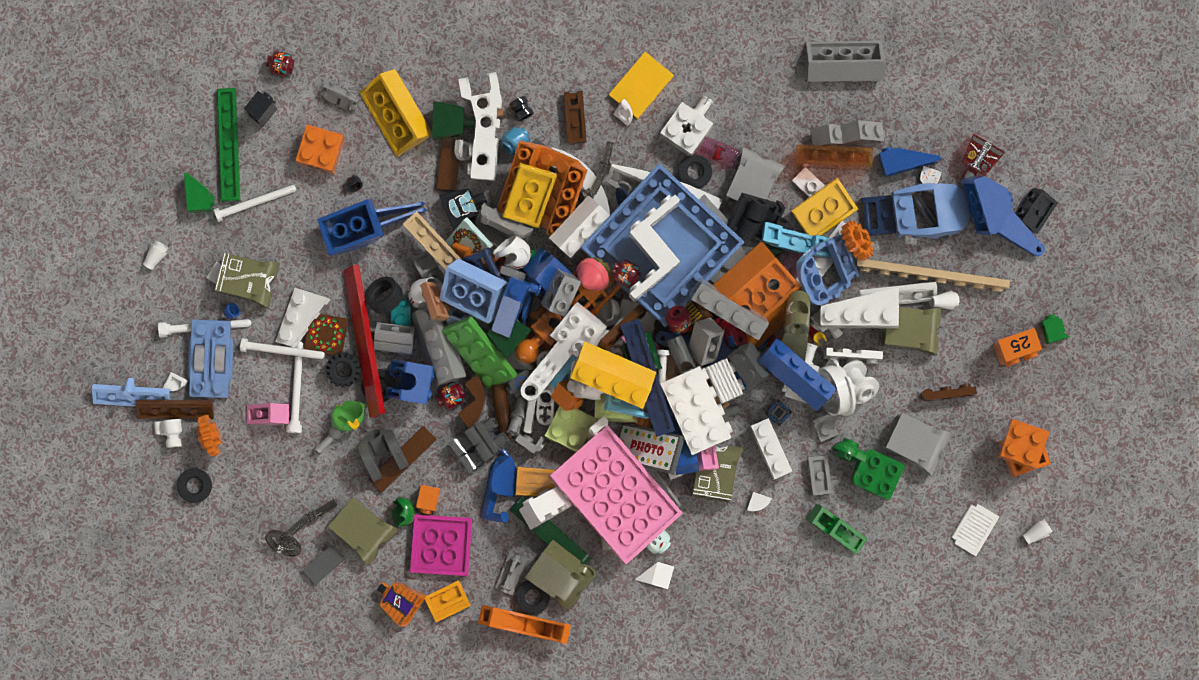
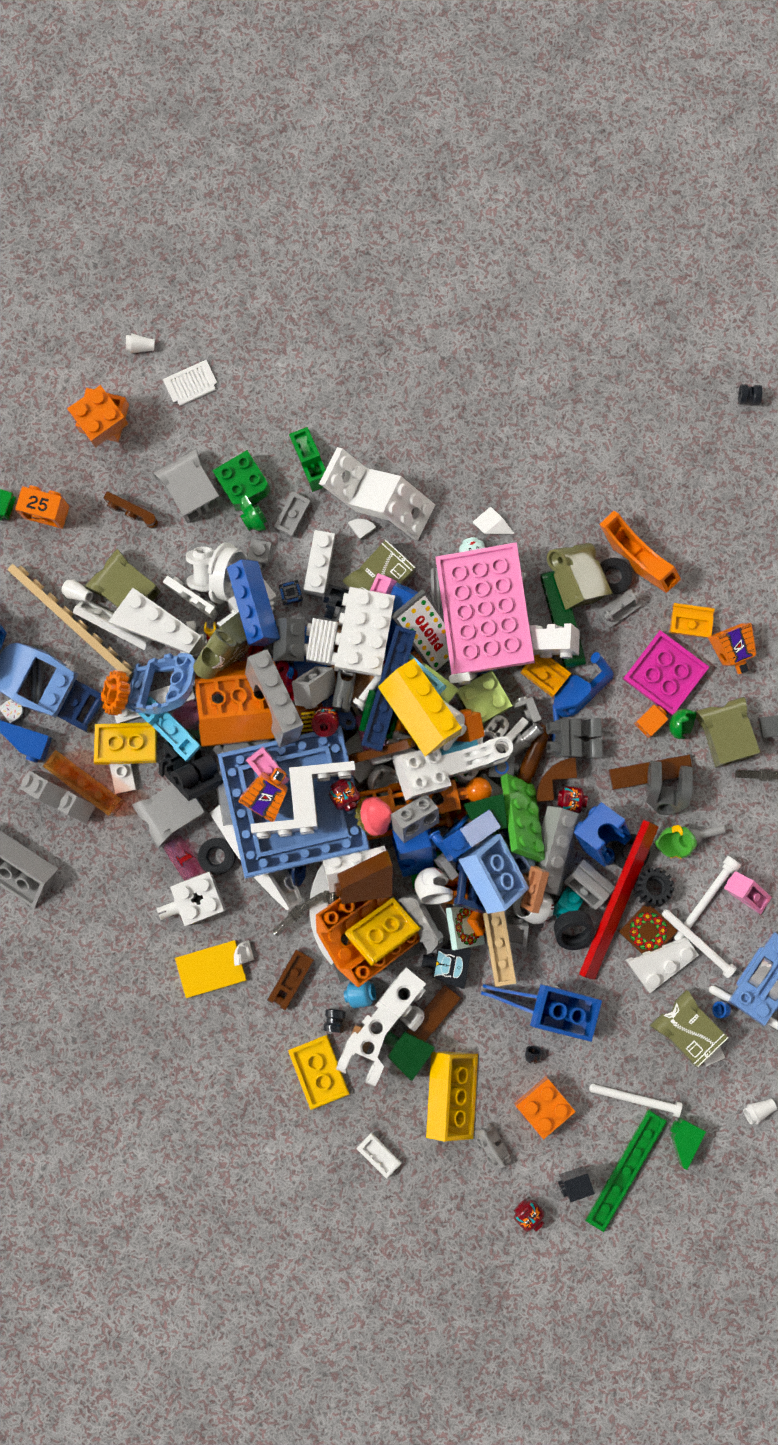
camera: 145 degrees left, 0 degrees up
(421, 33) = (379, 1155): none -> white plate
(511, 64) = (317, 1072): none -> yellow tile
(566, 220) = (366, 880): none -> reddish brown slope
(685, 233) = (265, 794): none -> torso
(697, 254) = (262, 761): none -> bright pink plate
(741, 430) = (333, 598): none -> black plate
(762, 533) = (377, 493): none -> white bracket

